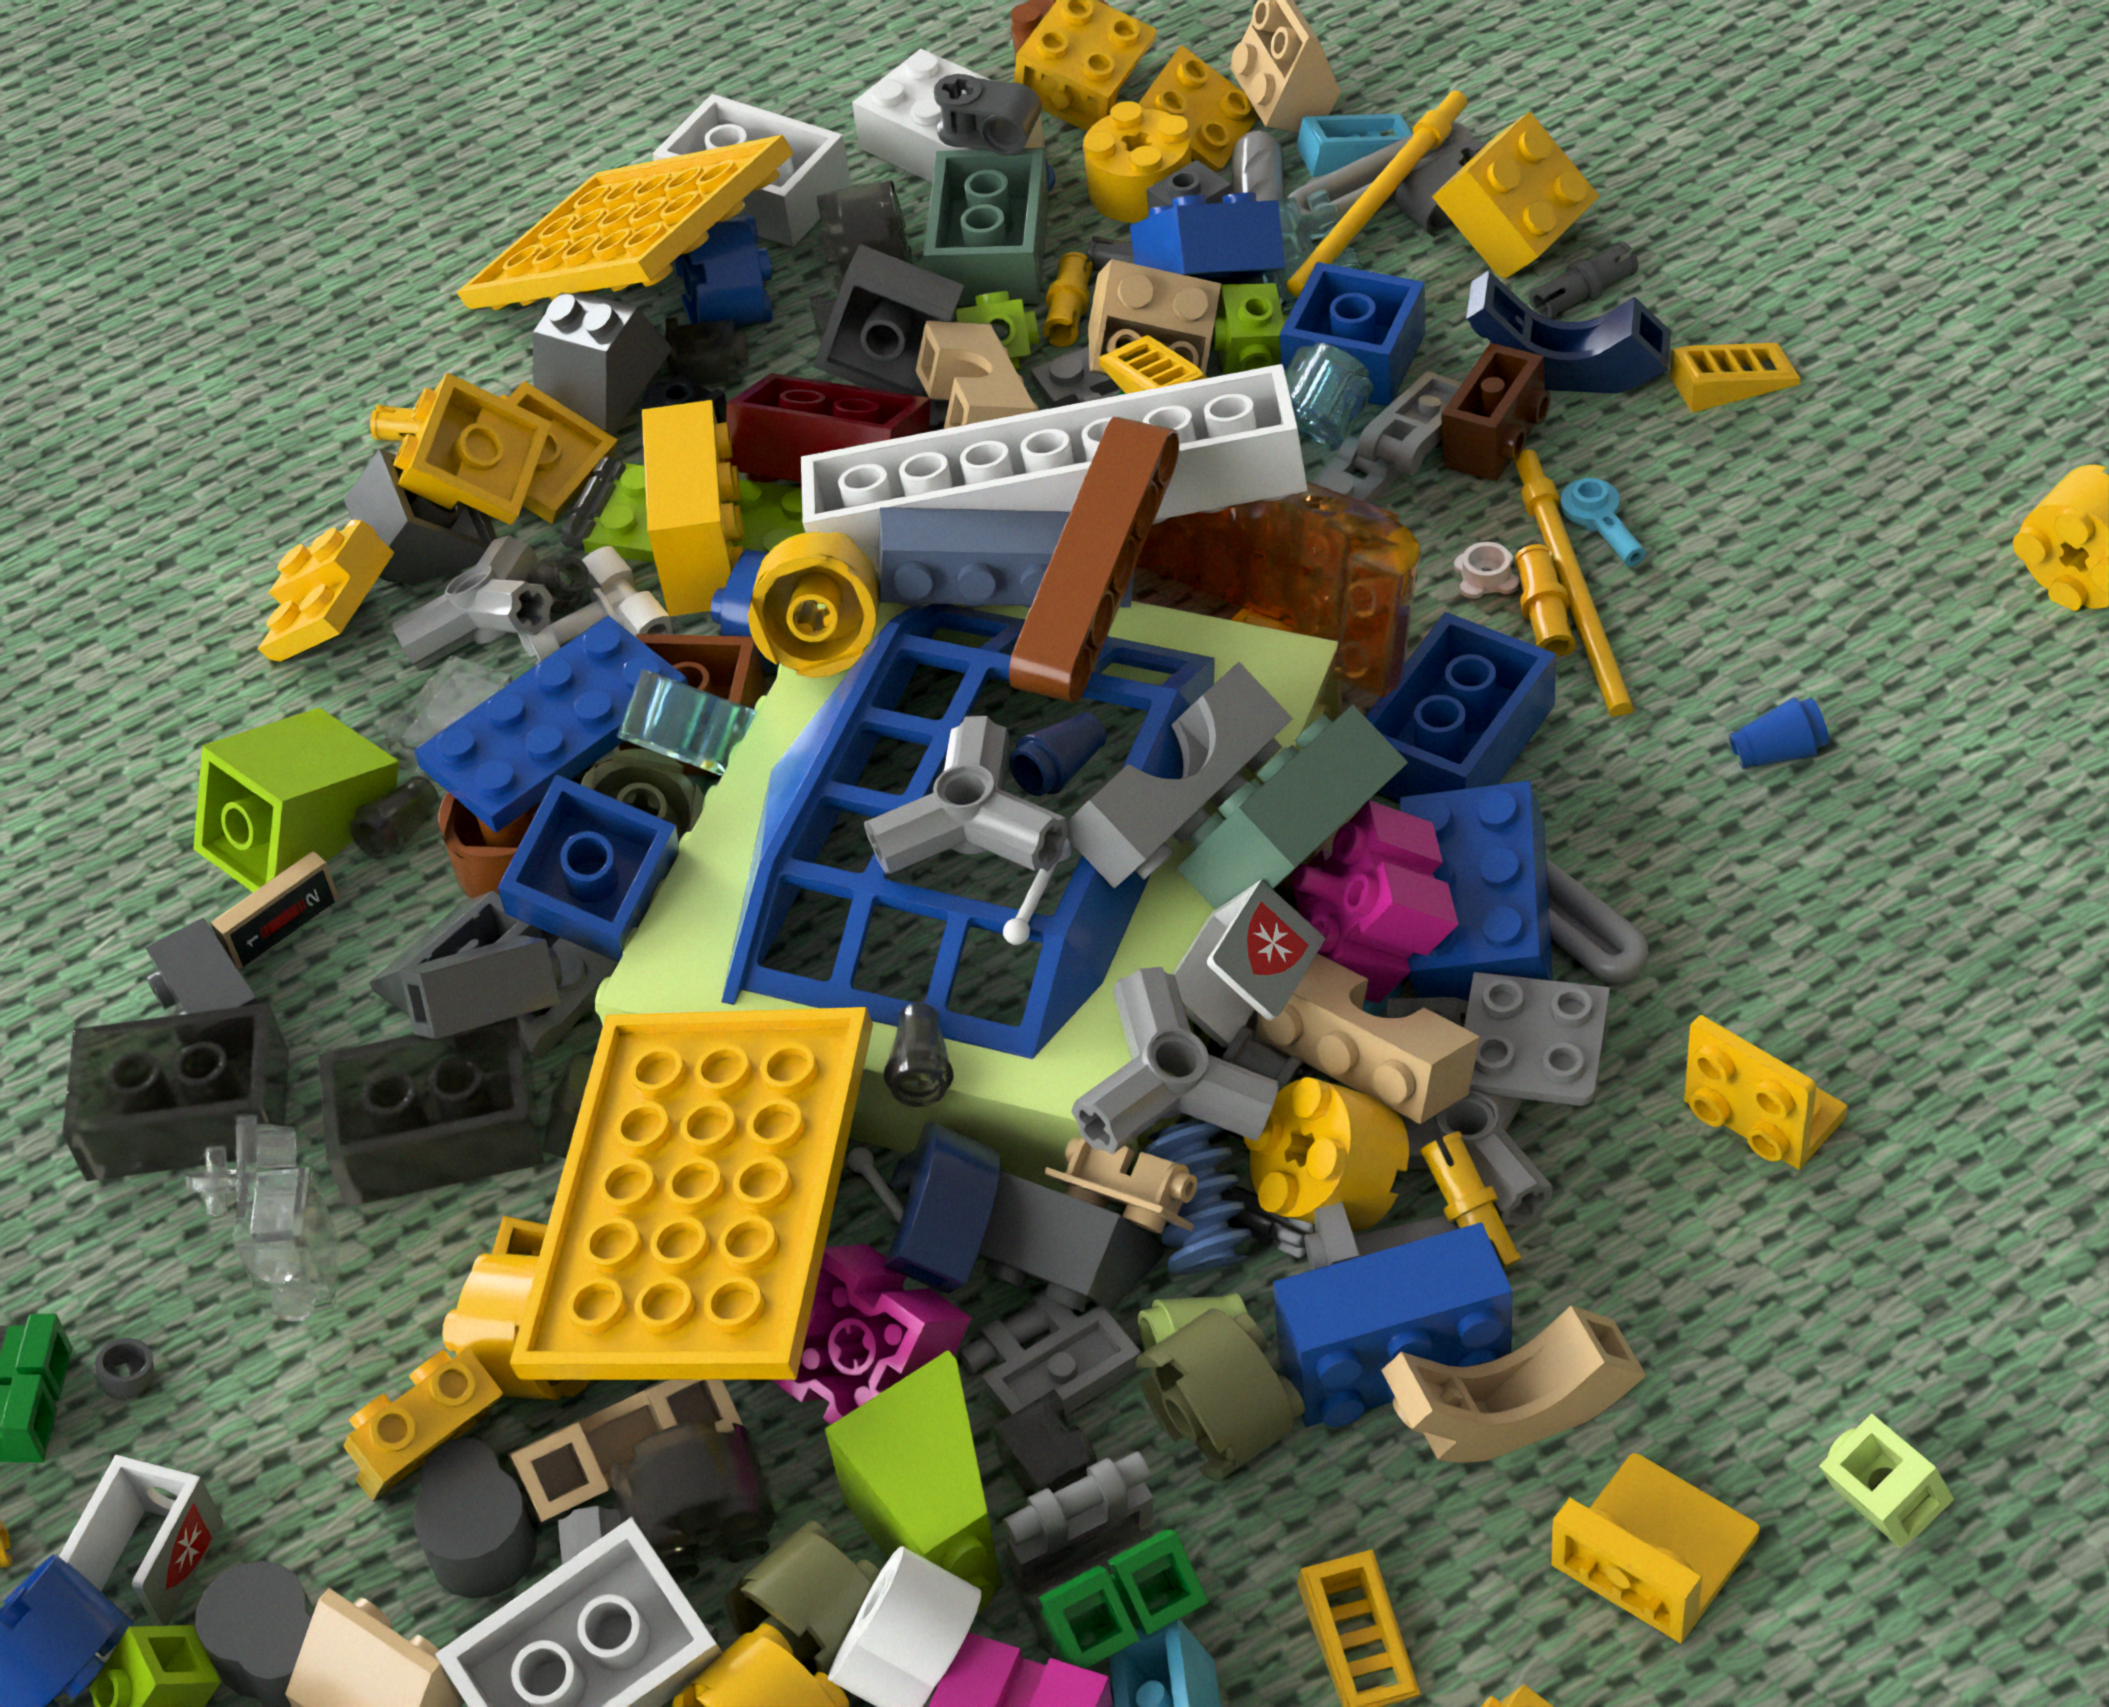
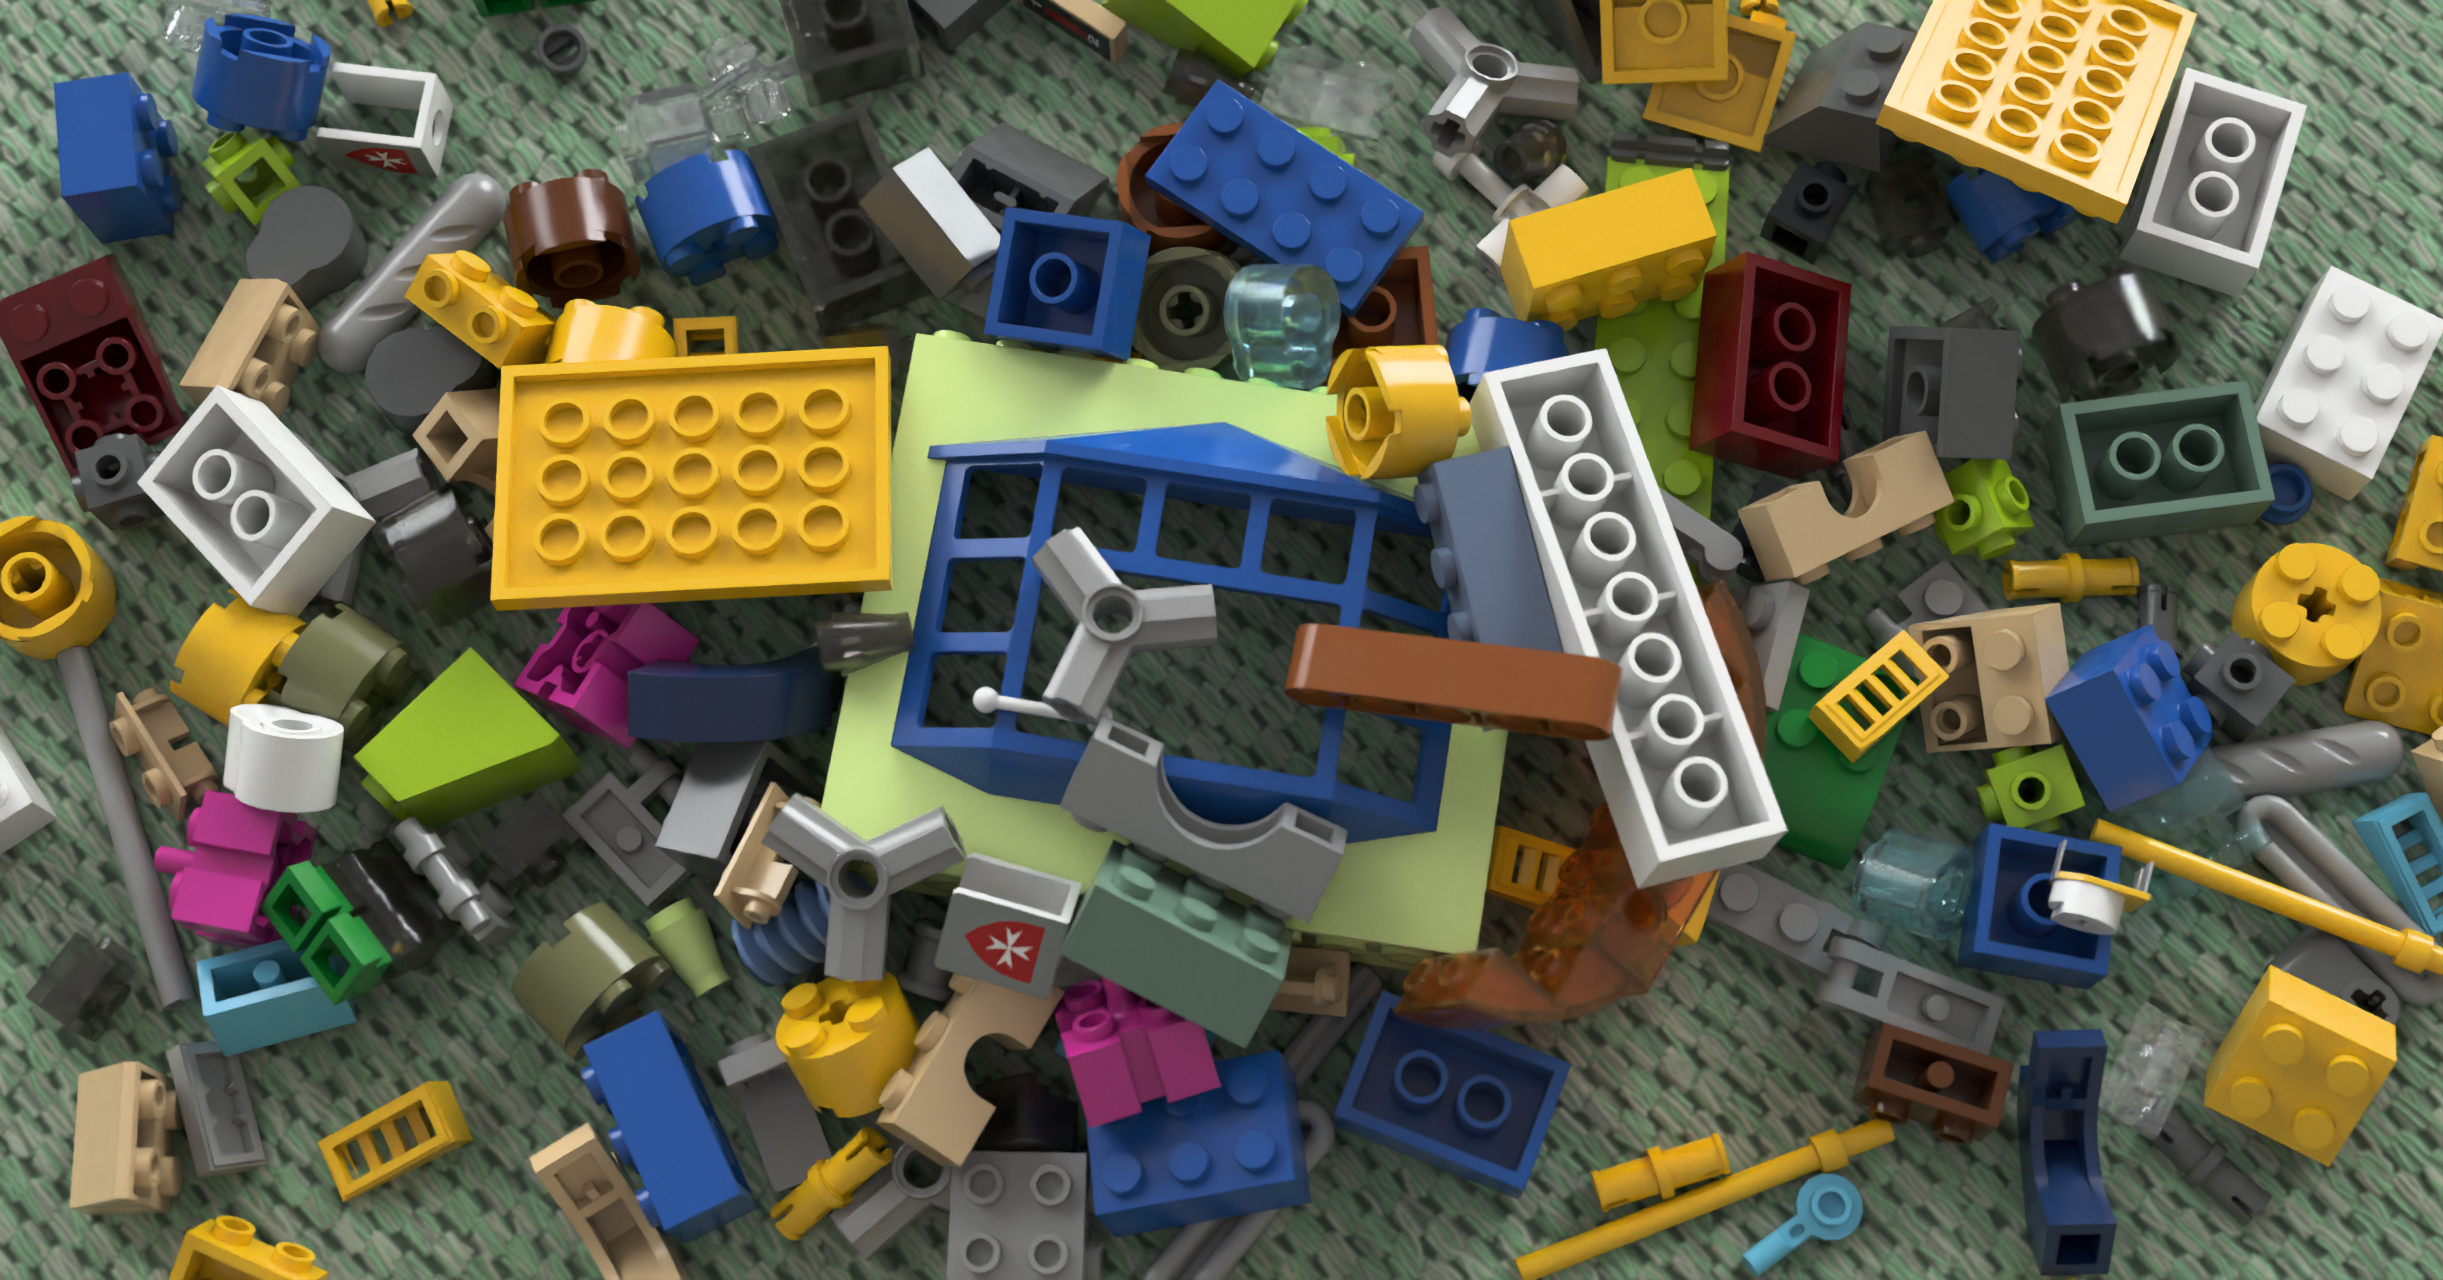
camera: 75 degrees right, 25 degrees up
(332, 1533) = (378, 304): none -> light grey piece
(355, 1347) = (571, 238): none -> reddish brown brick
(385, 1221) = (707, 216): none -> blue brick
(988, 116) = (2295, 433): dark grey piece -> none
(1055, 754) = (1205, 695): dark blue cone -> none
(1364, 262) = (2091, 902): none -> white piece
(1485, 570) = (1713, 1088): white plate -> none
(1532, 288) = (2149, 1071): none -> clear hips

